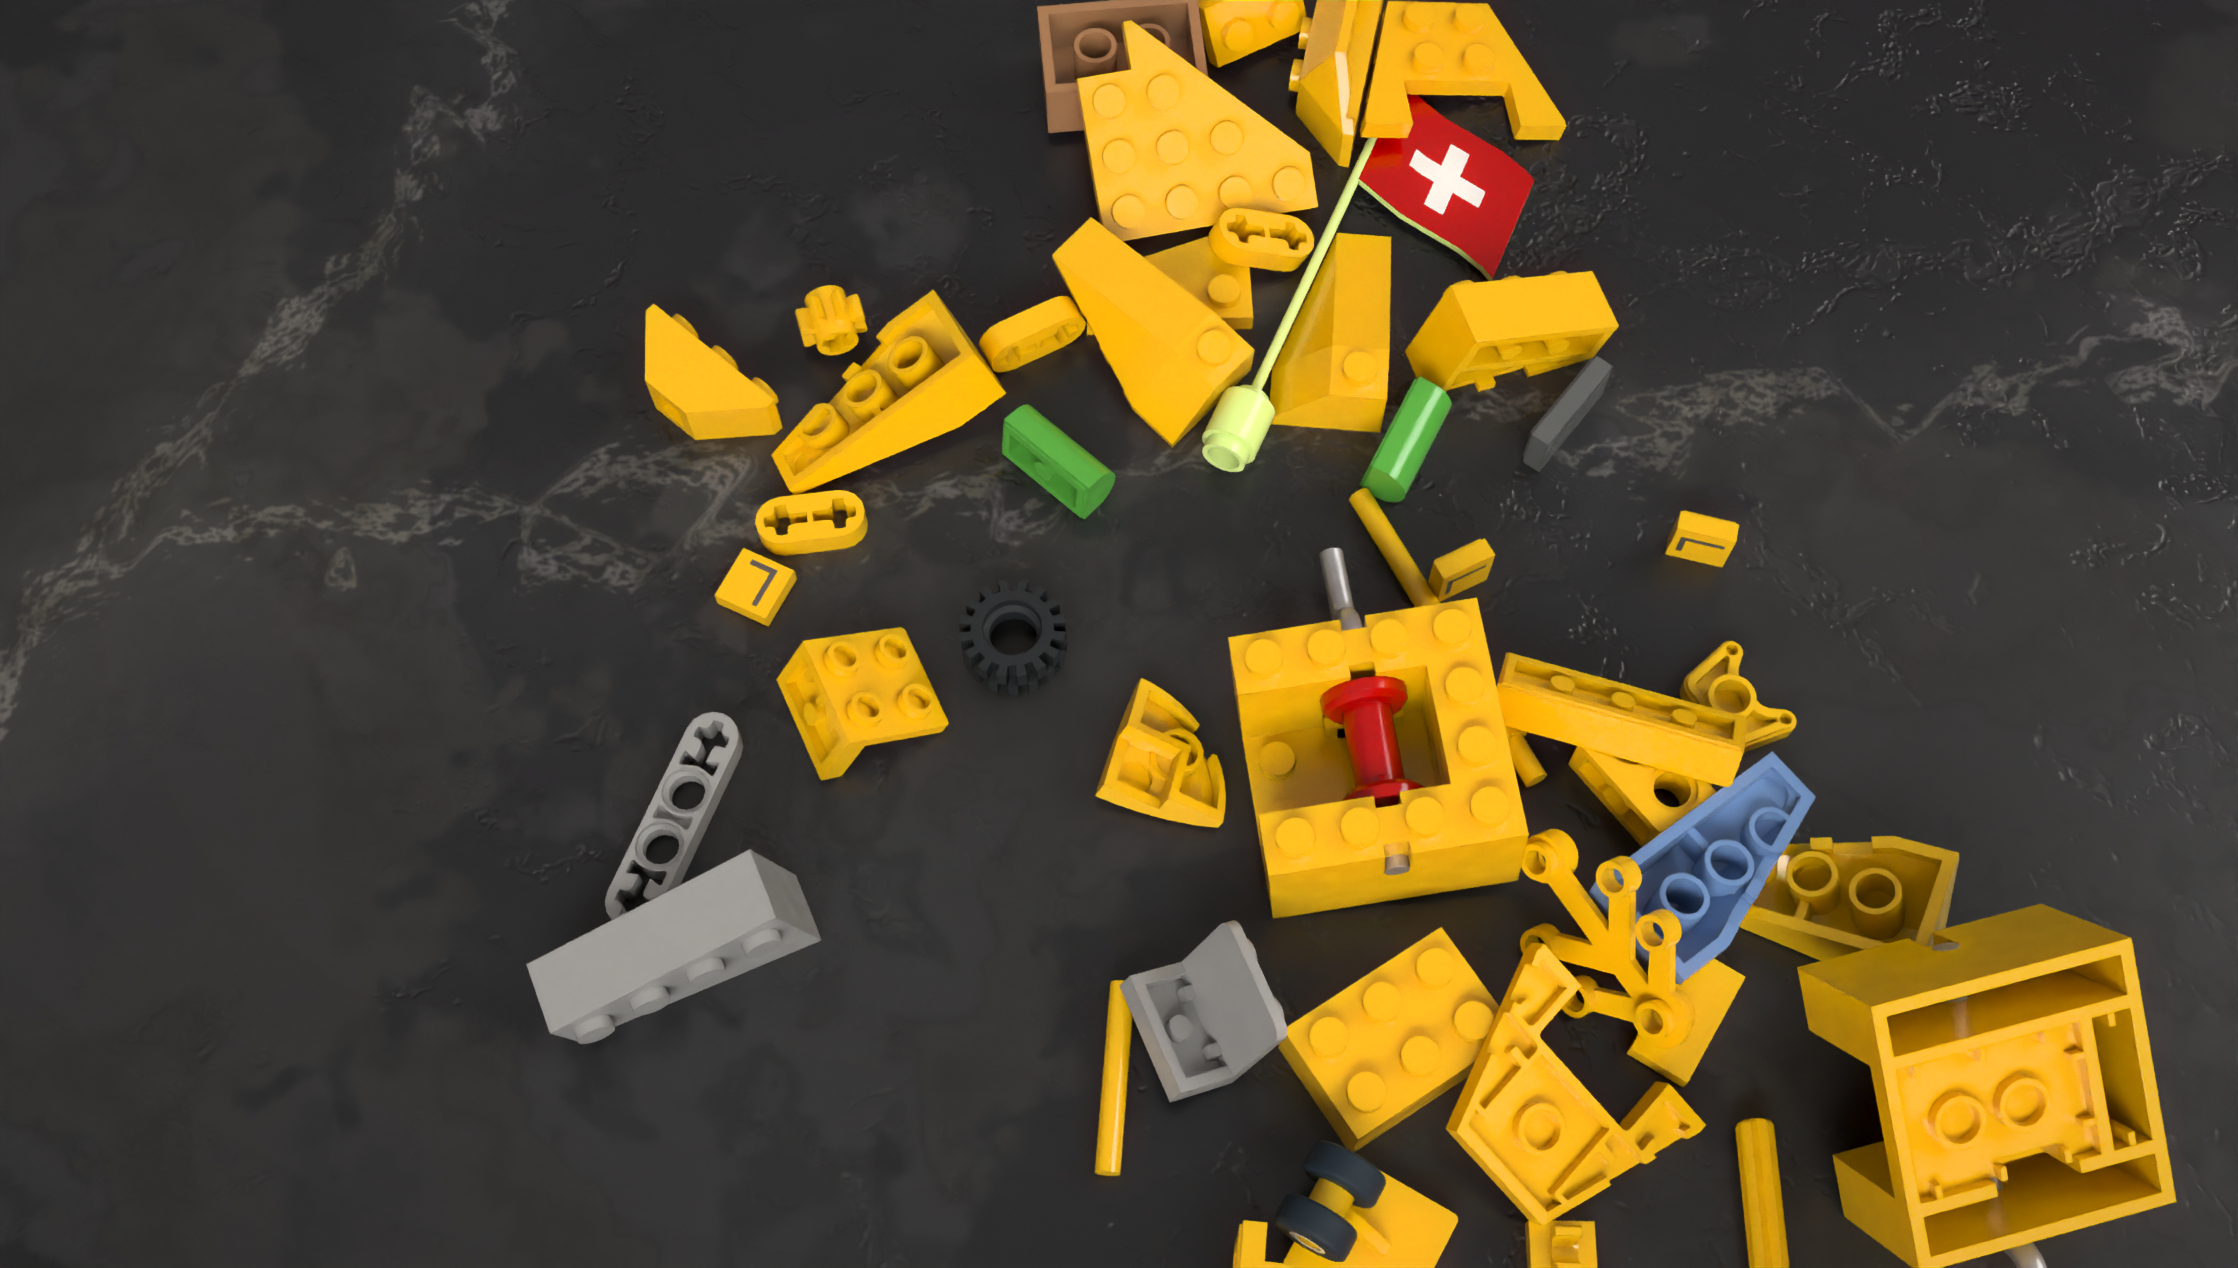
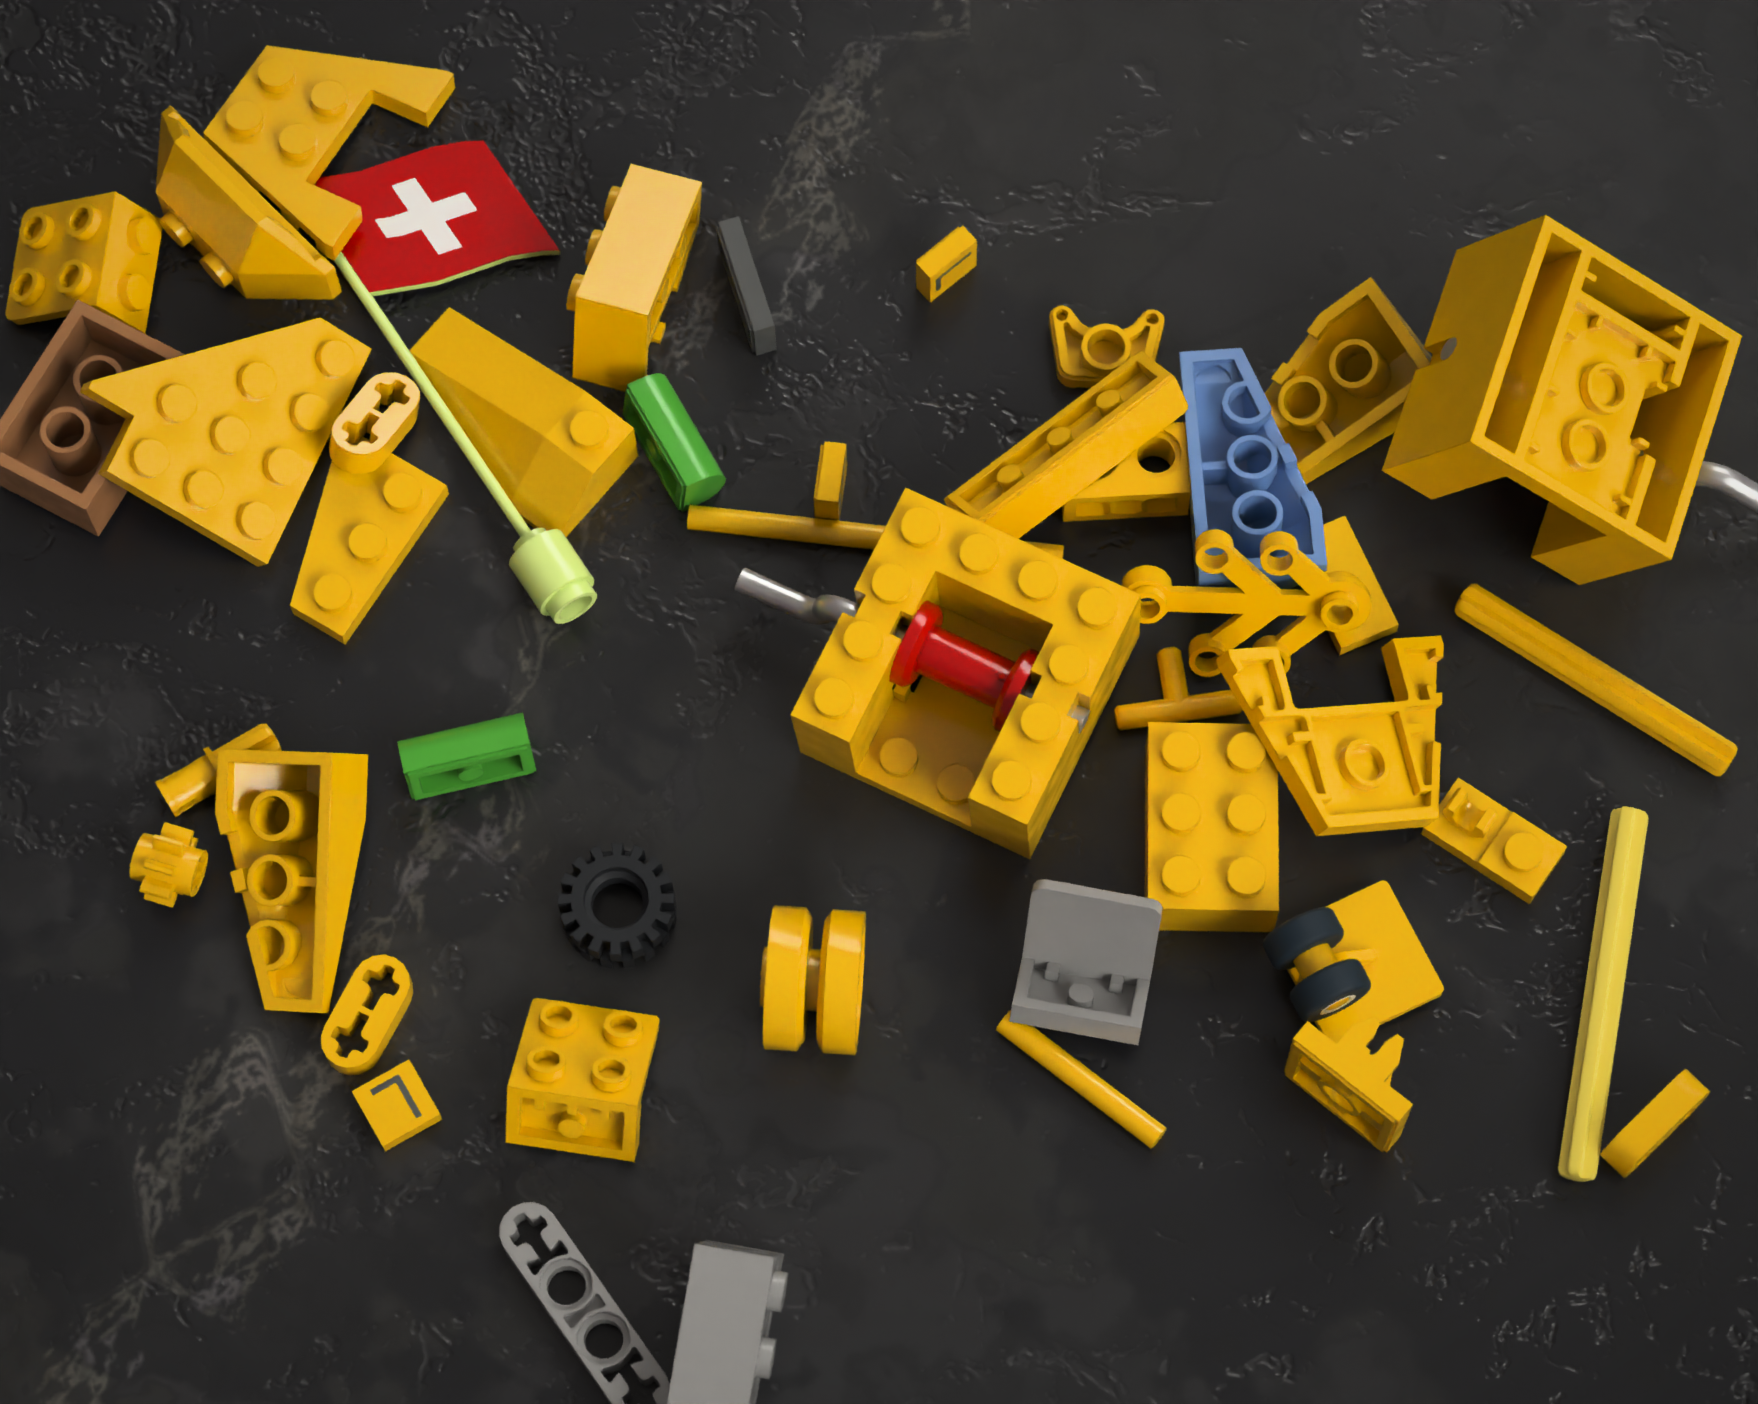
camera: 55 degrees left, 5 degrees up
(703, 385) = (147, 1027): yellow slope -> none
(896, 296) = (198, 779): none -> yellow axle
(1032, 334) = (318, 692): yellow beam -> none
(1042, 808) = (811, 979): none -> yellow wheel
(1154, 333) = (413, 583): yellow wedge -> none
(1160, 763) = (825, 856): yellow brick -> none
(1484, 948) = (1177, 703): none -> yellow piece

